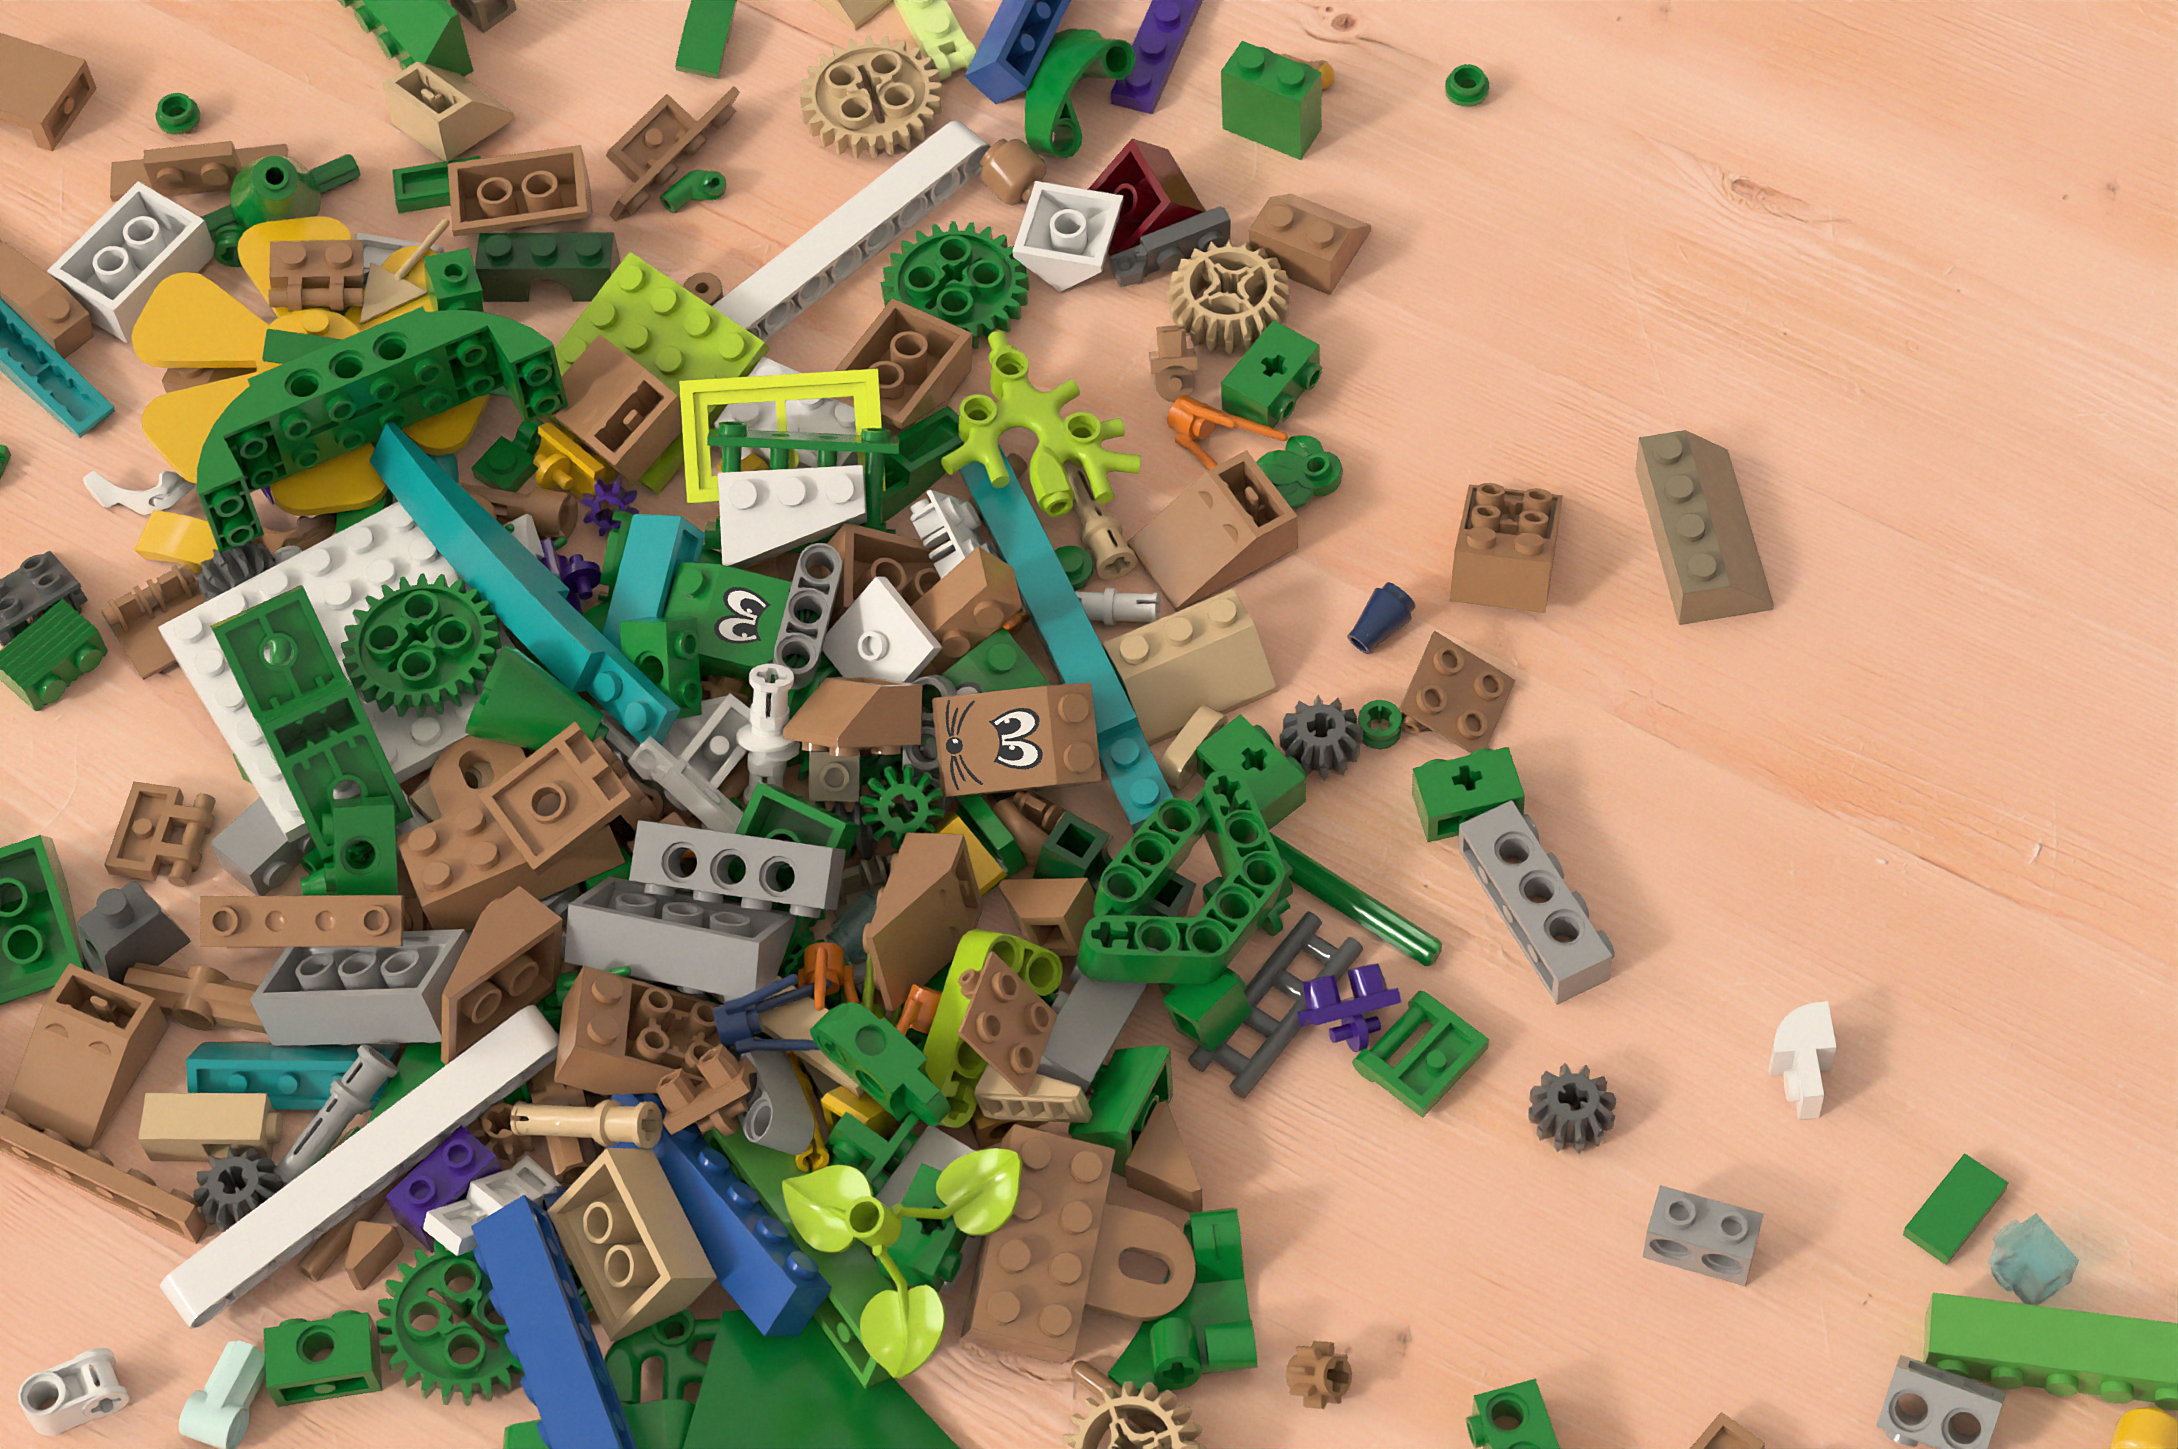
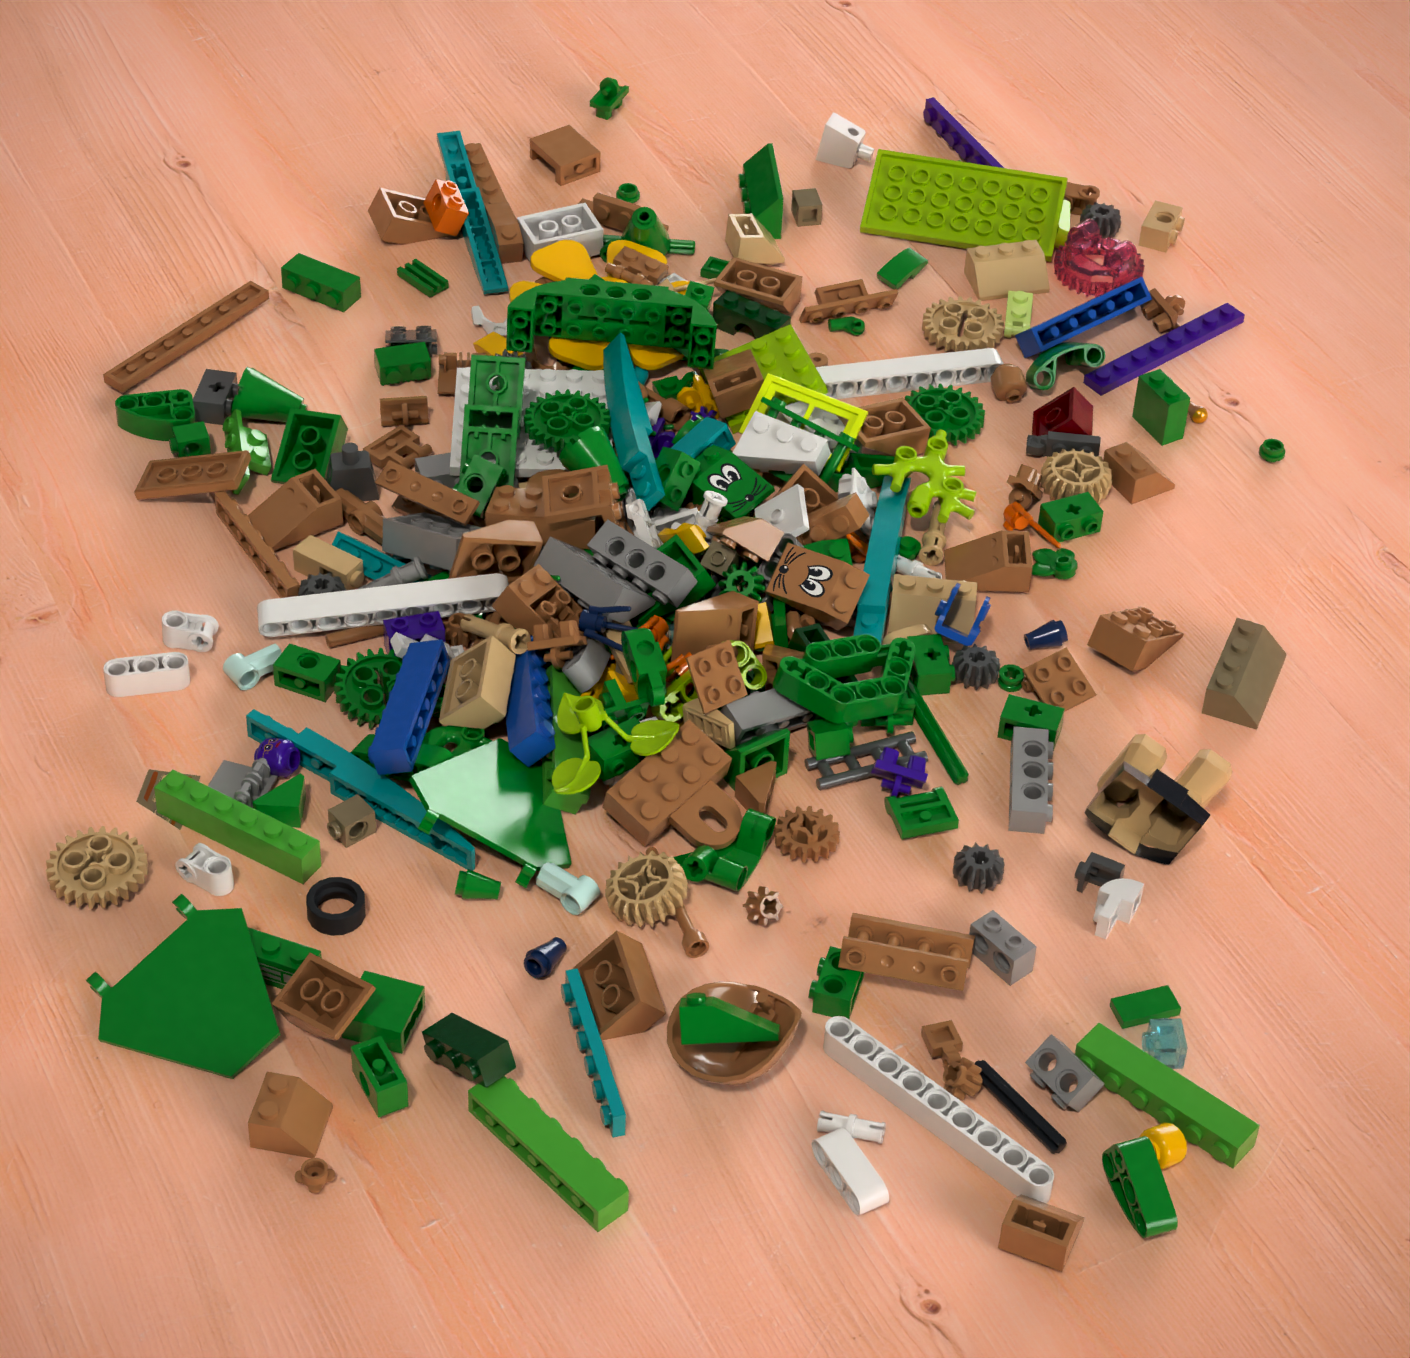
camera: 25 degrees right, 15 degrees down
(116, 749) = (404, 410): none -> medium nougat hips
(371, 1251) = (360, 642): medium nougat slope -> none
(767, 765) = (690, 534): none -> yellow slope
(810, 594) = (758, 477): light grey beam -> none
(1066, 233) = (1011, 414): white slope -> none
(1272, 698) = (954, 634): none -> blue piece
(1286, 1178) = (806, 834): none -> medium nougat gear
(1575, 1301) = (907, 951): none -> medium nougat fence
(1743, 1007) = (1097, 871): none -> dark grey bracket
(1770, 861) = (1161, 809): none -> tan piece

